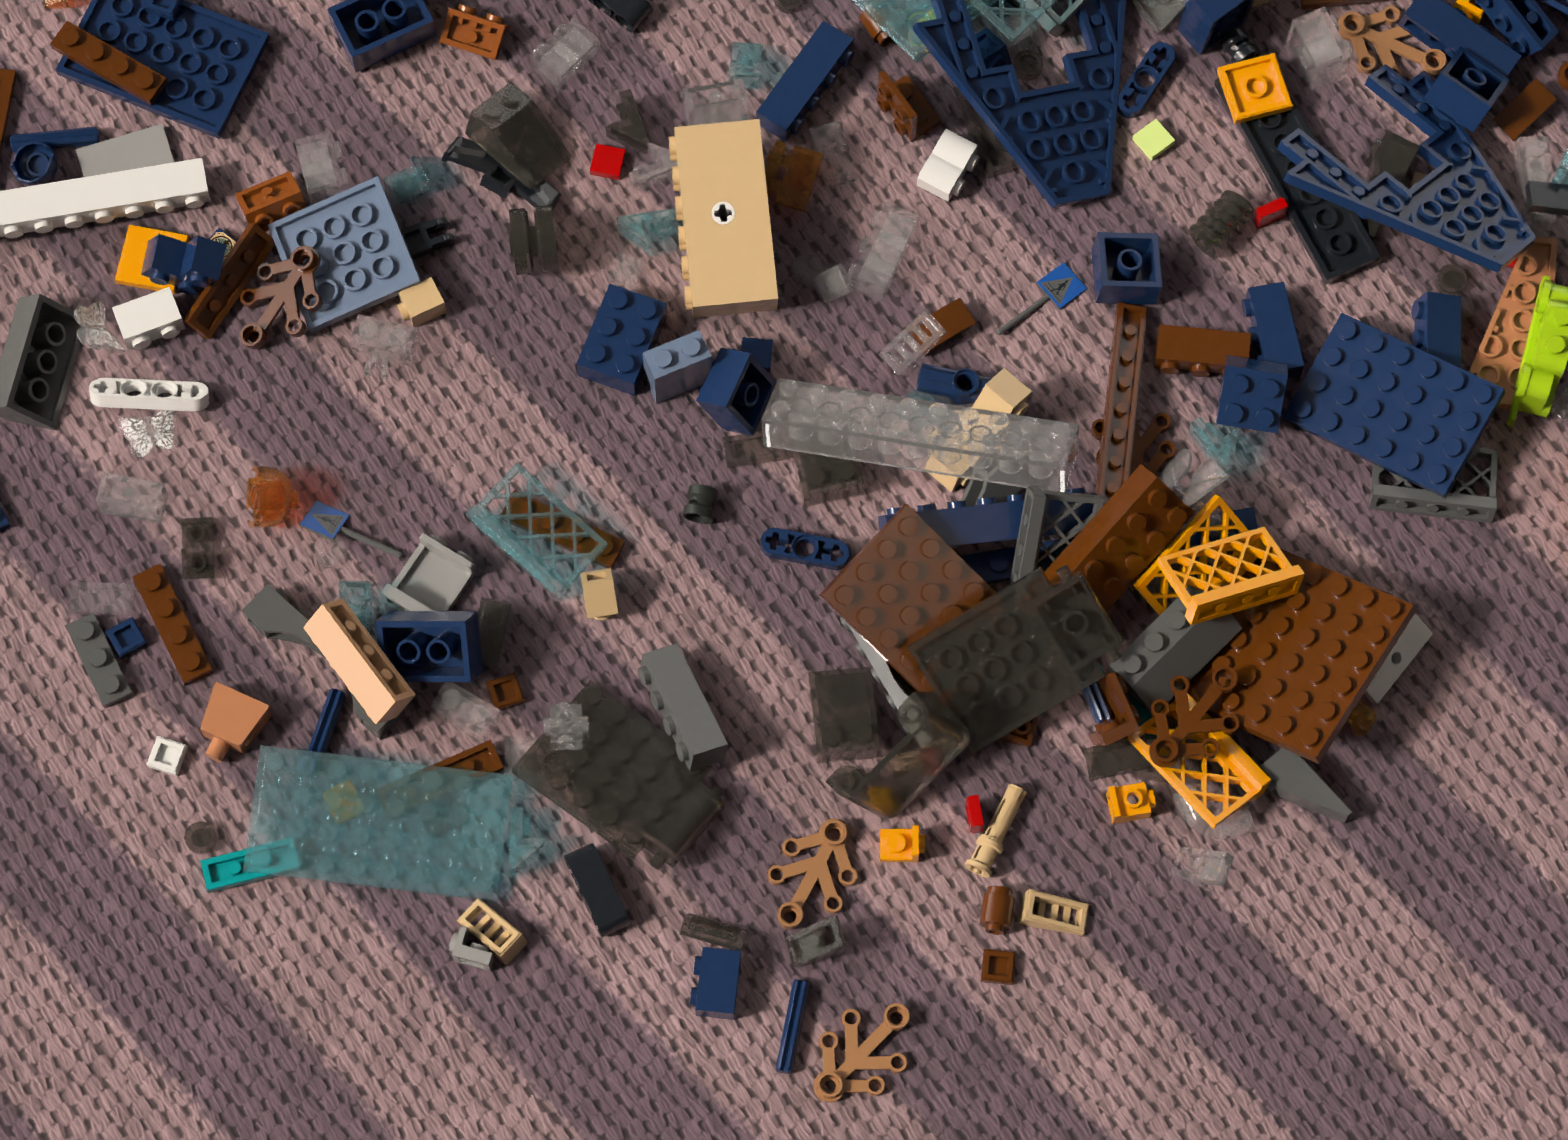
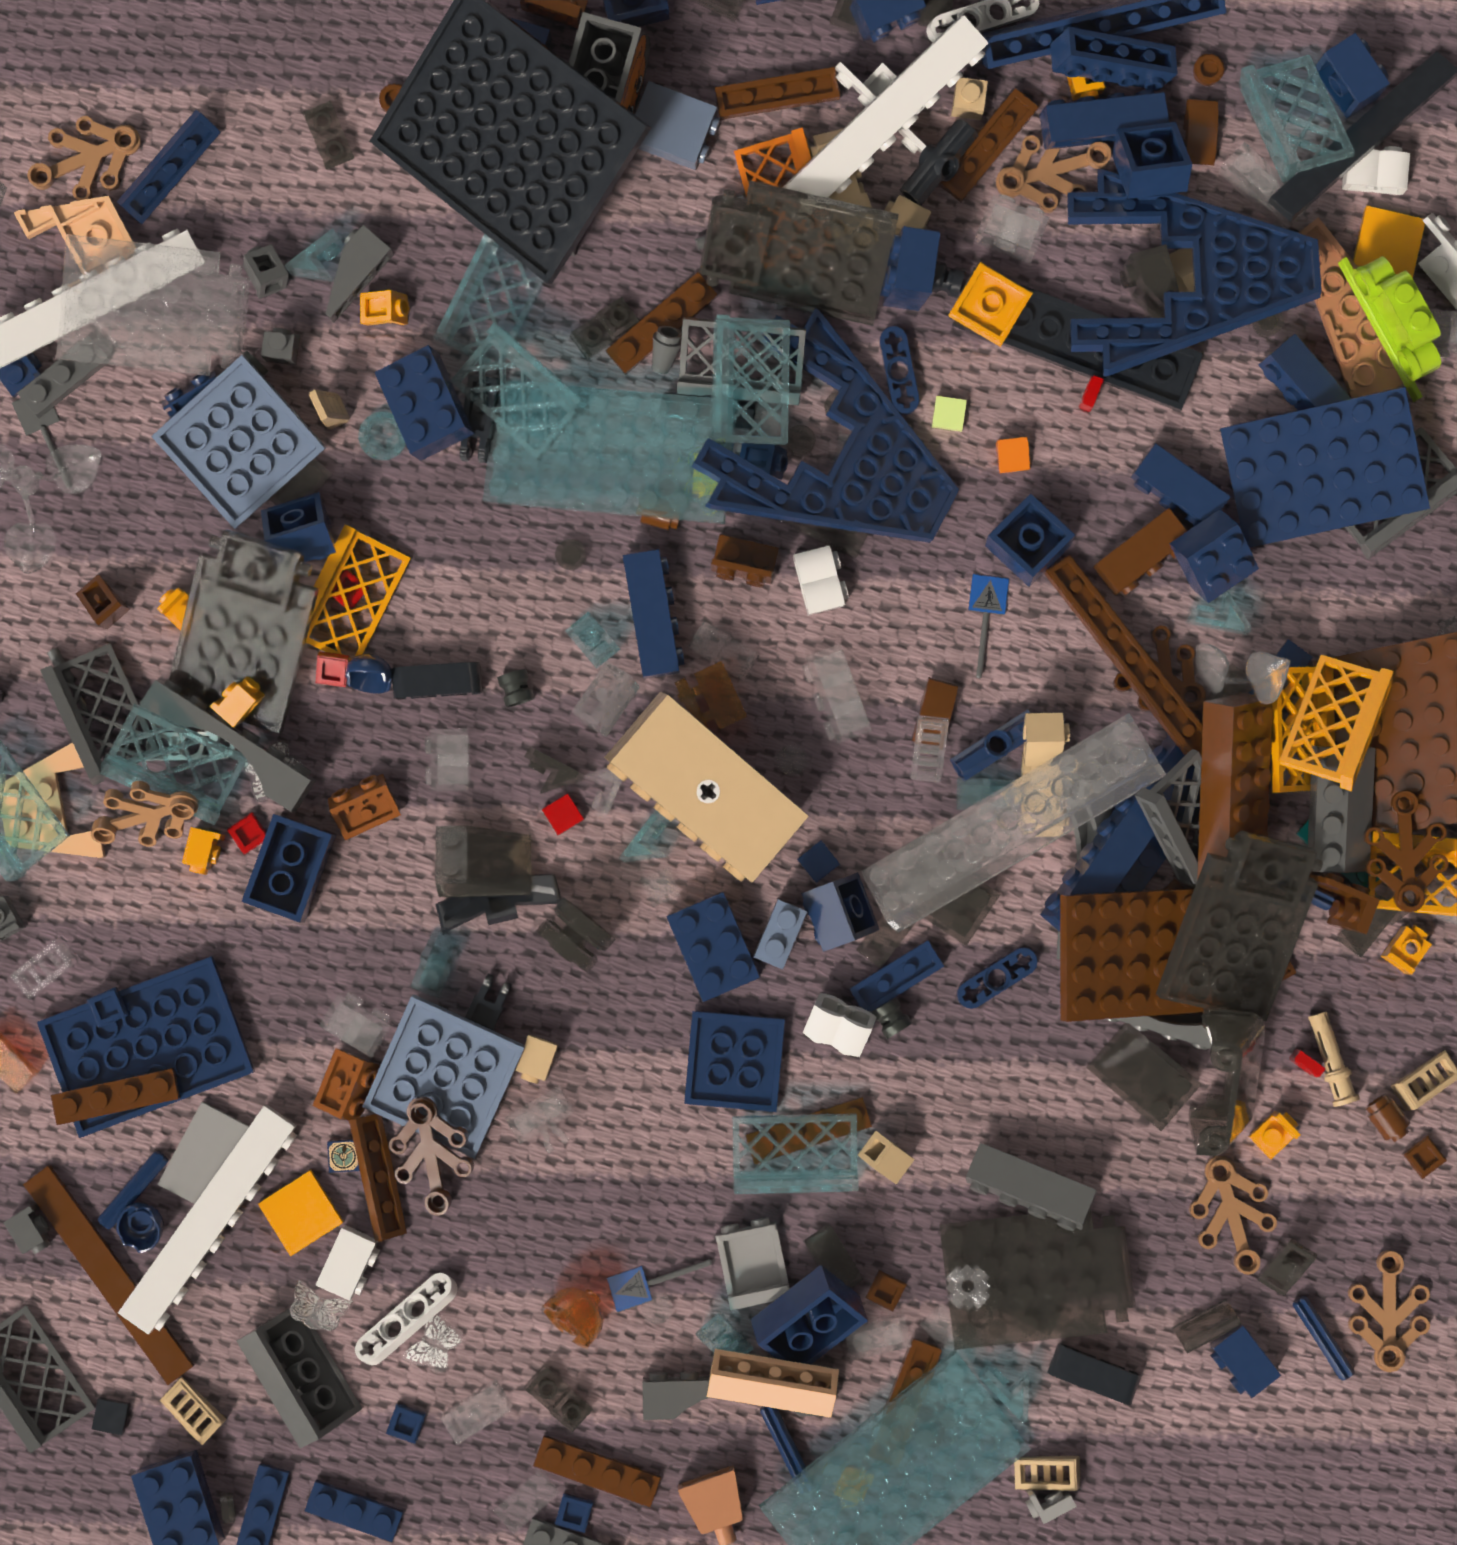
camera: 45 degrees left, 15 degrees up
(74, 466) = (406, 1423): none -> dark blue tile
(183, 264) = (340, 1197): dark blue brick -> none
(558, 432) = (734, 1061): none -> dark blue plate
(658, 472) = (839, 1025): none -> white brick
(660, 47) = (515, 688): none -> pearl dark grey wheel
(734, 480) = (896, 977): none -> dark blue plate
(833, 283) = (824, 754): clear slope -> none
(1173, 205) = (1013, 455): none -> orange slope
(1219, 221) = (1062, 437): clear smoke piece -> none

